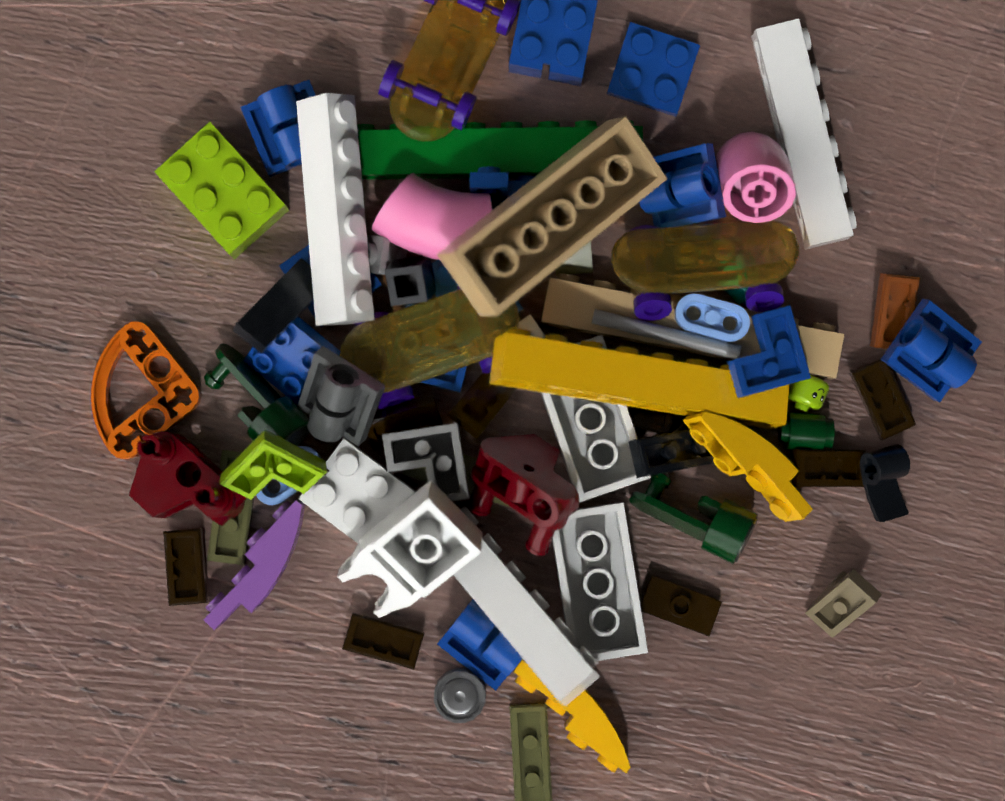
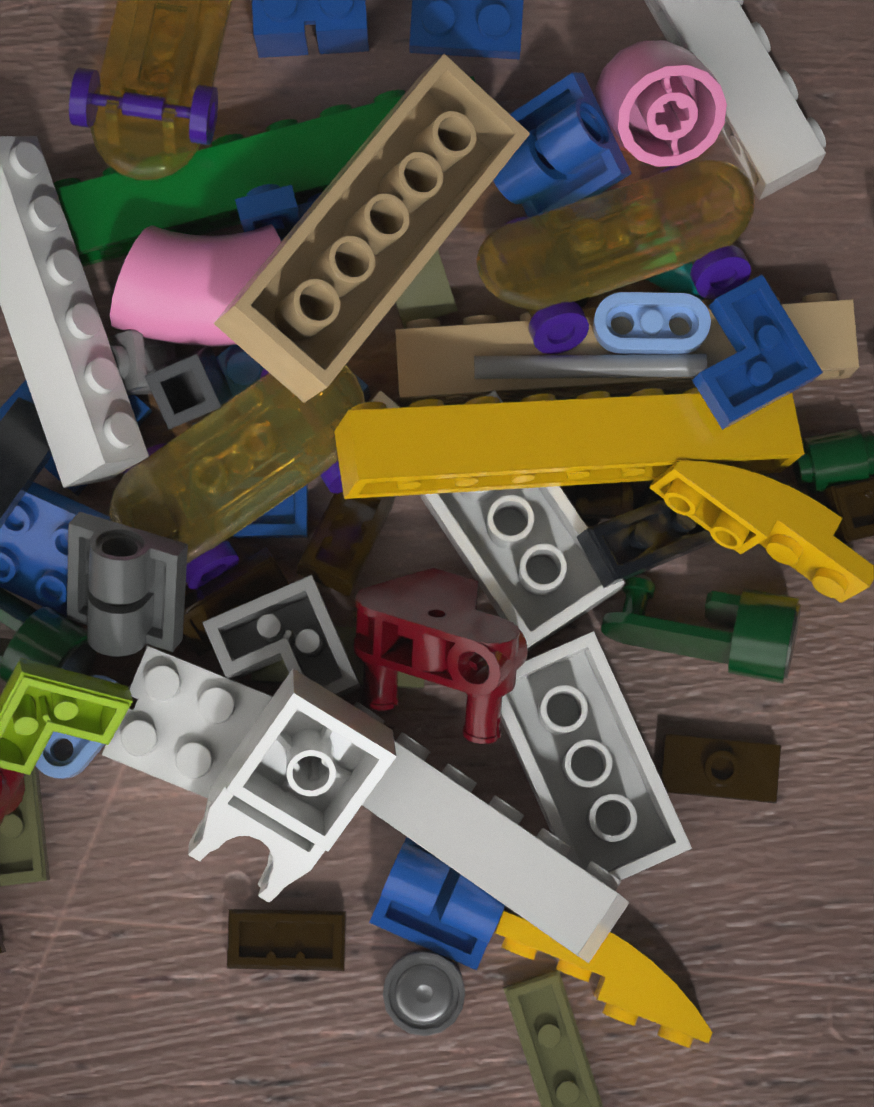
camera: 10 degrees left, 5 degrees down
(270, 554) = (84, 854): medium lavender slope -> none
(808, 393) = (824, 402): lime piece -> none

